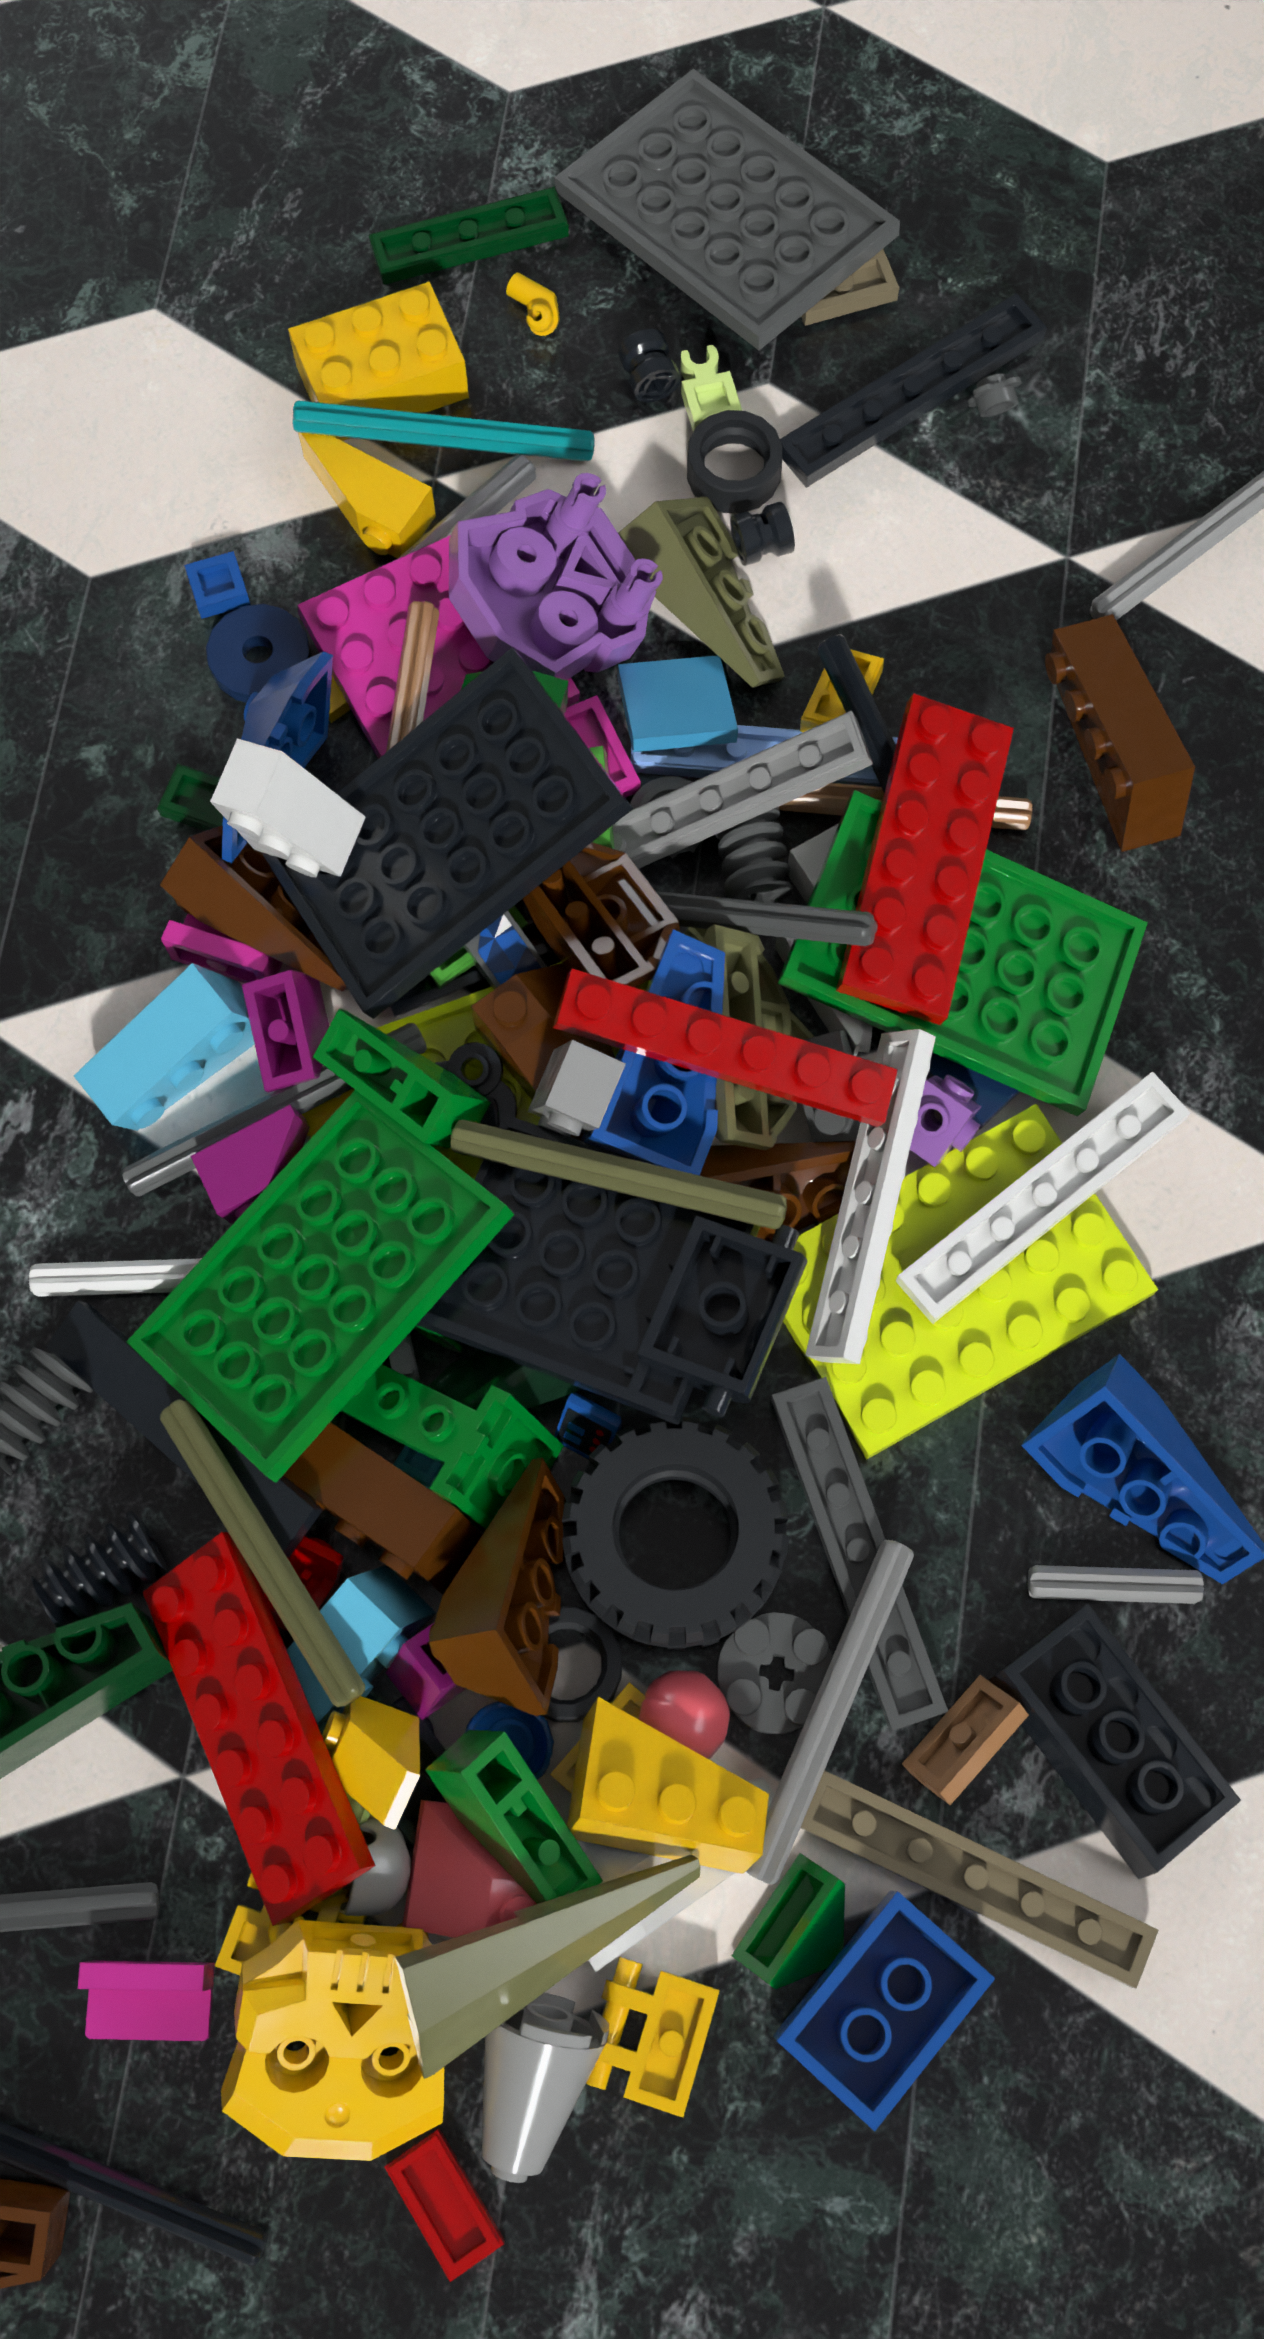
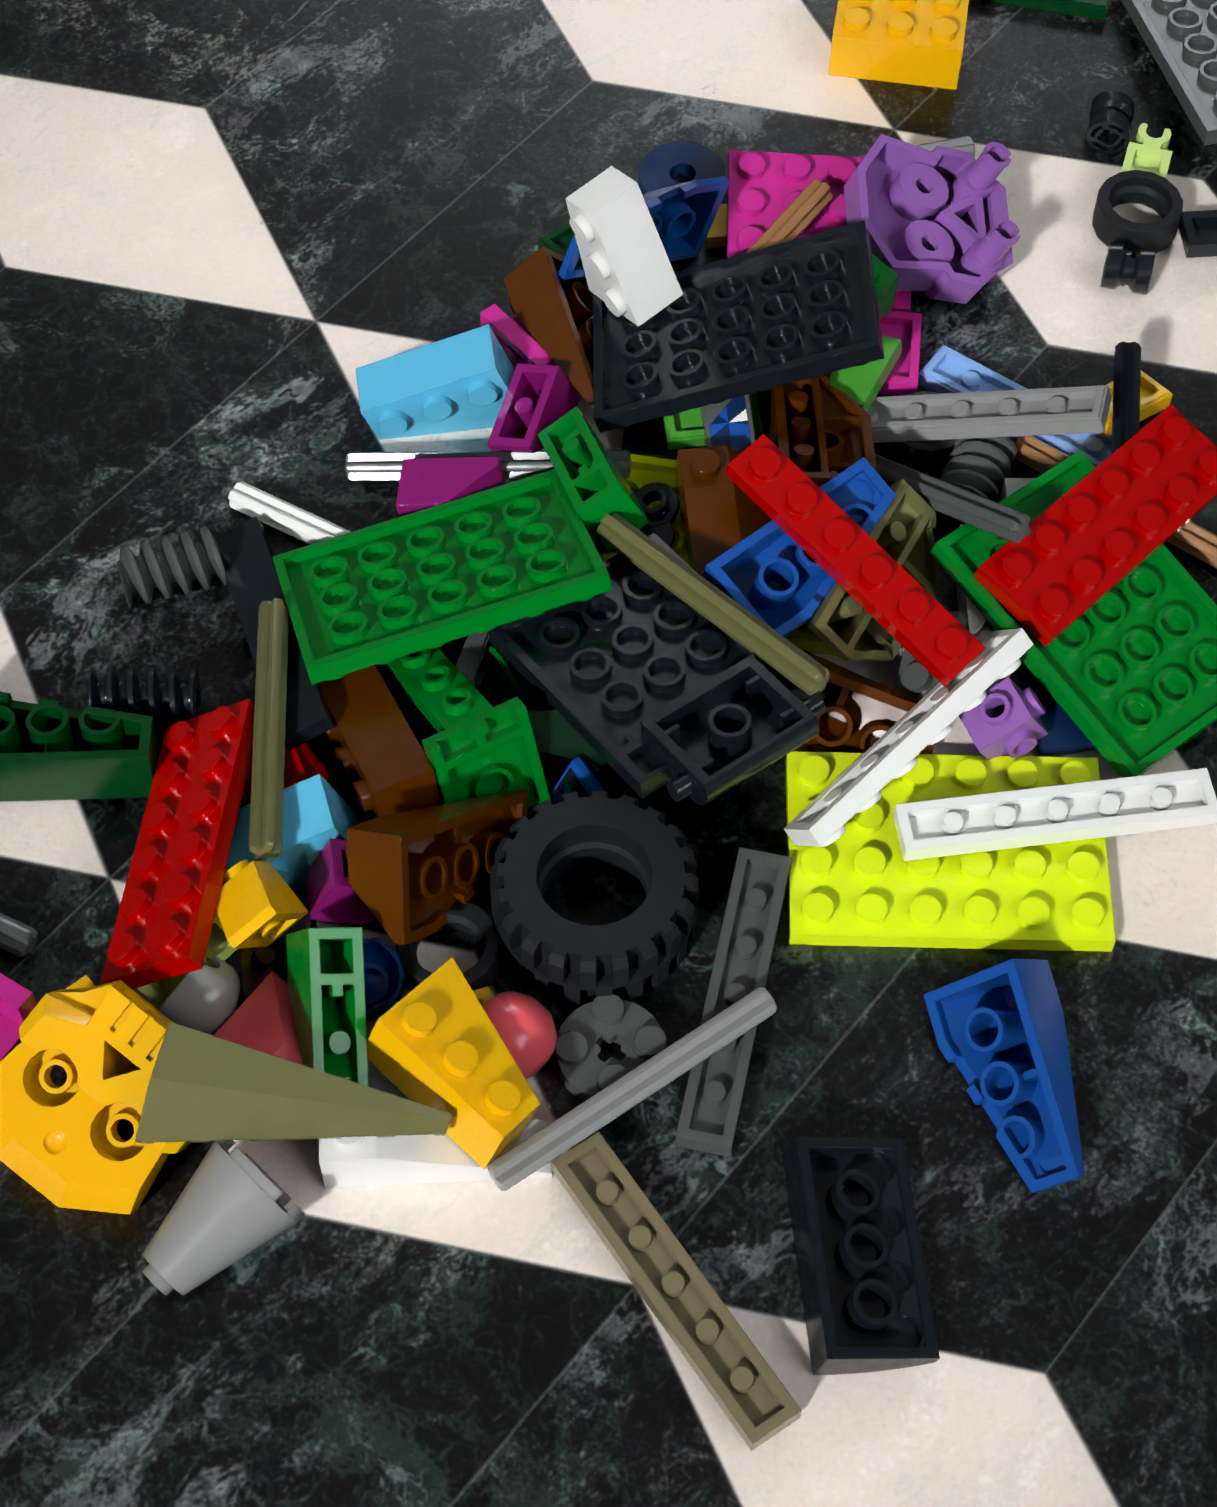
camera: 30 degrees right, 15 degrees down
(217, 584) = (681, 120): blue plate -> none
(379, 501) = (837, 113): yellow slope -> none
(442, 431) = (916, 91): teal axle -> none
(444, 2204) = (91, 1282): red tile -> none
(540, 303) = (1051, 47): yellow arm -> none
(575, 1089) = (715, 525): light grey brick -> none
(669, 2042) = (342, 1264): yellow plate -> none
(677, 703) = (982, 348): dark azure tile -> none
(702, 584) = (1056, 273): olive wedge -> none
(797, 1927) = (505, 1244): green slope -> none
(883, 2008) = (530, 1328): blue brick -> none
(965, 1739) = (734, 1178): medium nougat plate -> none
(1115, 1584) = (937, 1140): light grey axle -> none

